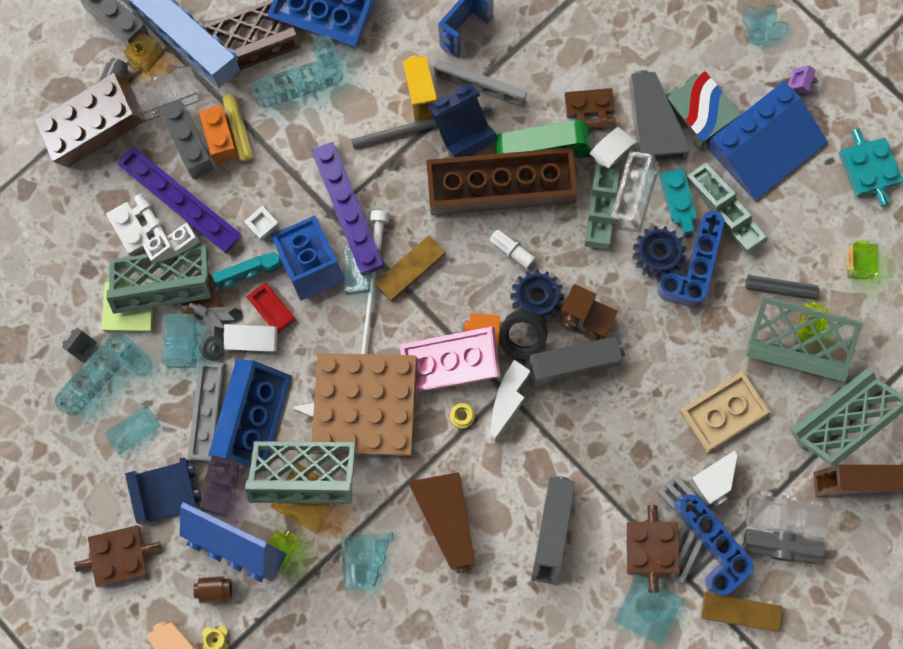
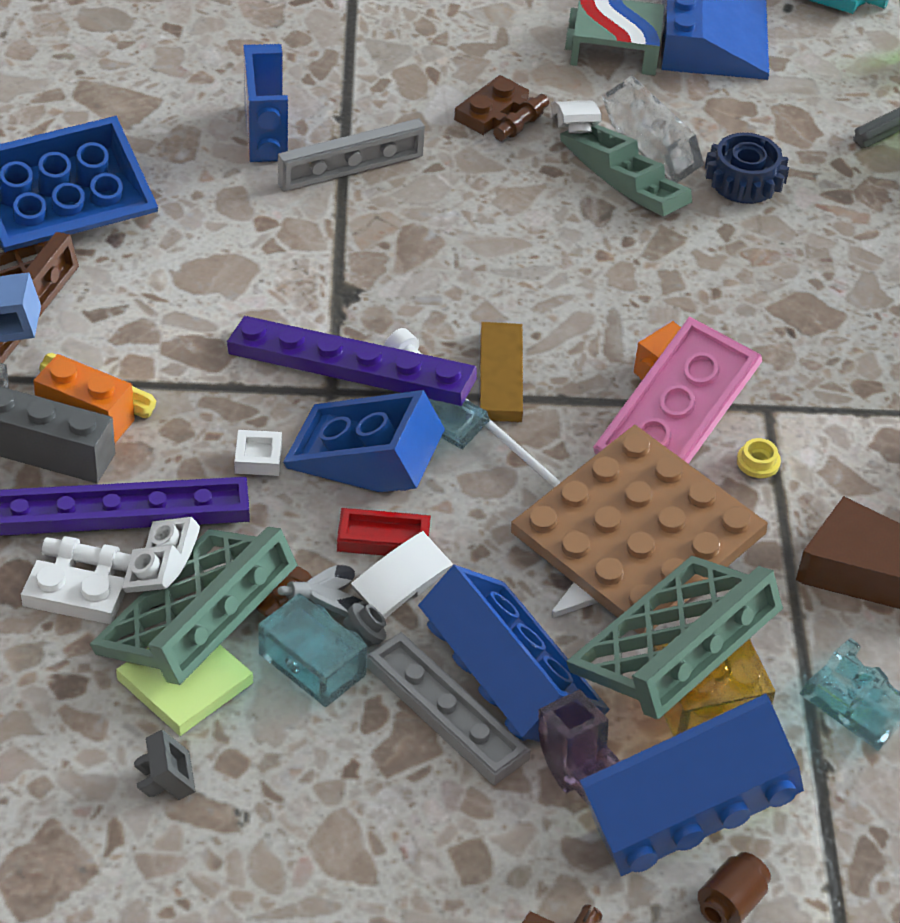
camera: 55 degrees left, 30 degrees down
(98, 377) = (243, 726): clear light blue beam -> none
(132, 429) = (371, 809): clear light blue tile -> none
(162, 491) = (514, 838): dark blue panel -> none
(247, 270) = (309, 502): teal hinge -> none
(296, 77) = (138, 266): clear light blue beam -> none
(402, 130) = (367, 196): dark grey bar -> none
(419, 86) = (293, 195): yellow slope -> none
(462, 122) = (382, 191): dark blue panel -> none
(502, 181) = (497, 214): reddish brown brick -> none
(508, 398) = (789, 405): white slope -> none
(512, 249) = (592, 271): white axle -> none
(531, 318) = (737, 299): black tyre -> none
(538, 283) = (680, 287): dark blue gear -> none
(552, 136) = (519, 126): beam -> none
(574, 361) = (802, 315): dark grey slope -> none
(586, 314) = (753, 260): reddish brown brick -> none
(654, 120) = (576, 66): dark grey slope -> none
(678, 199) = (703, 120): teal hinge -> none
(698, 258) = (815, 166): blue beam -> none
(722, 199) = (740, 93): sand green slope -> none

